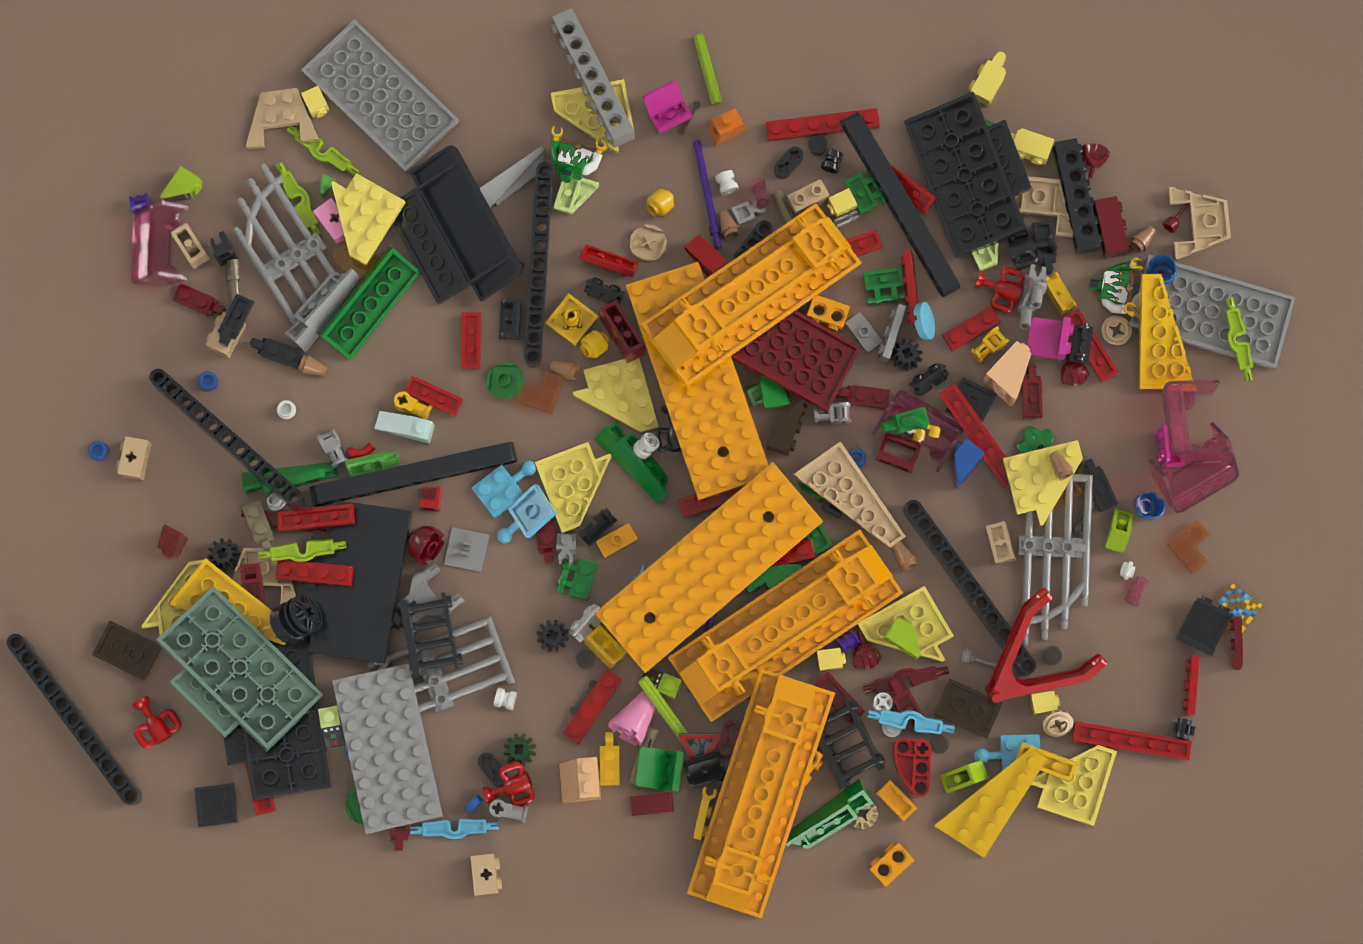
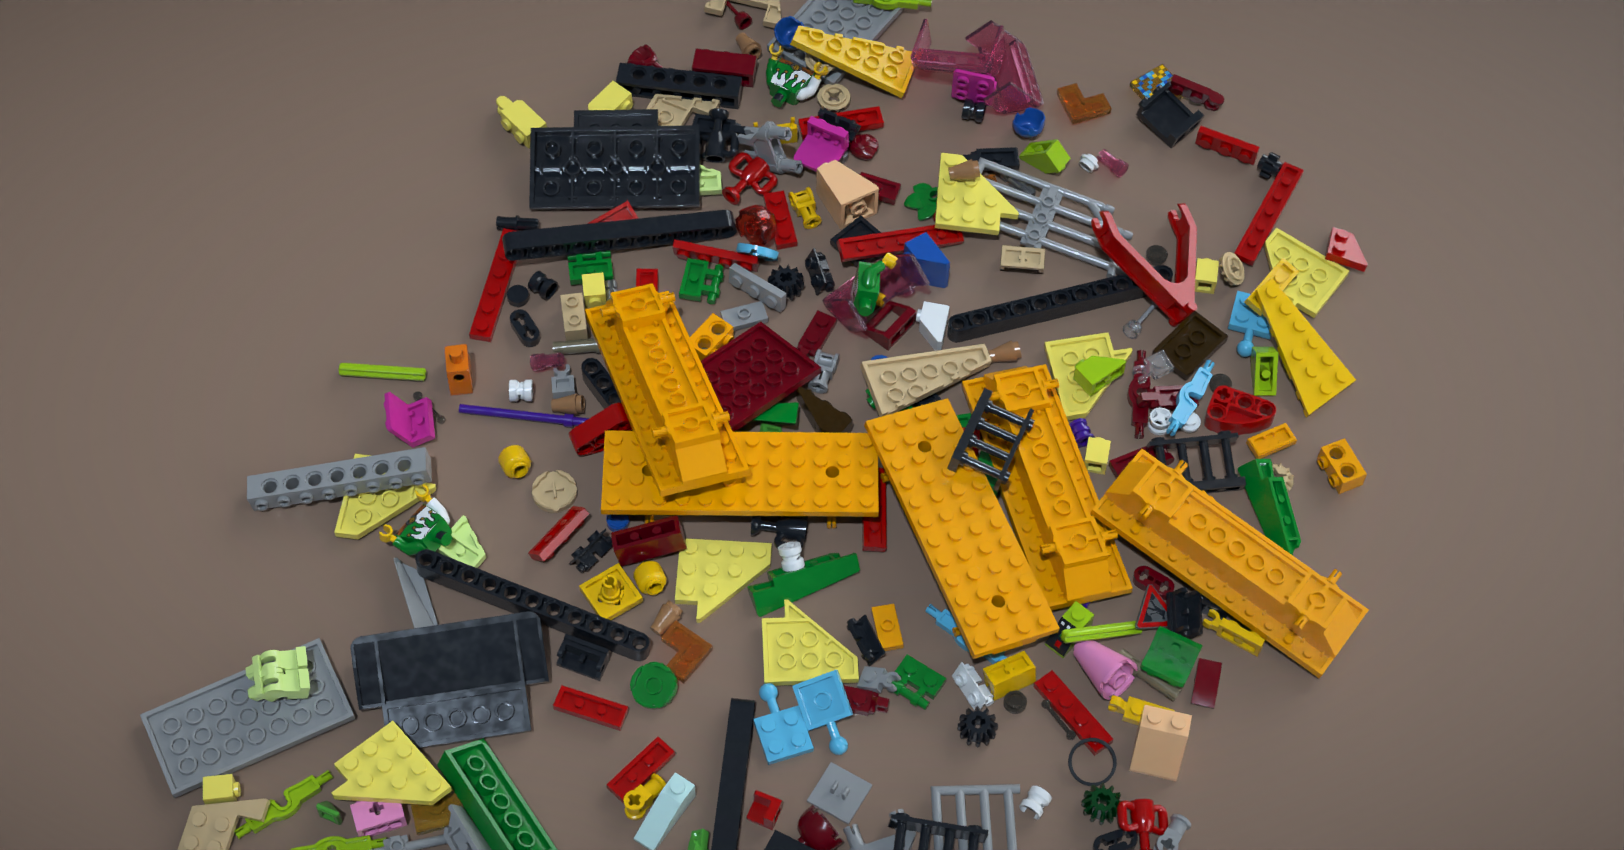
camera: 75 degrees left, 20 degrees down
(410, 96) = (279, 675): none -> yellowish green hips
(537, 731) = (1090, 740): none -> black piece
(782, 550) = (977, 422): none -> black fence
(865, 654) = (1101, 422): dark red piece -> none
(885, 117) = (517, 223): none -> black axle
(910, 488) = (933, 323): none -> white slope
(932, 684) = (1155, 366): none -> clear plate
(952, 313) = (756, 225): none -> clear red cylinder
(1115, 816) = (1344, 250): none -> wing
(1145, 452) = (969, 108): none -> black wheel

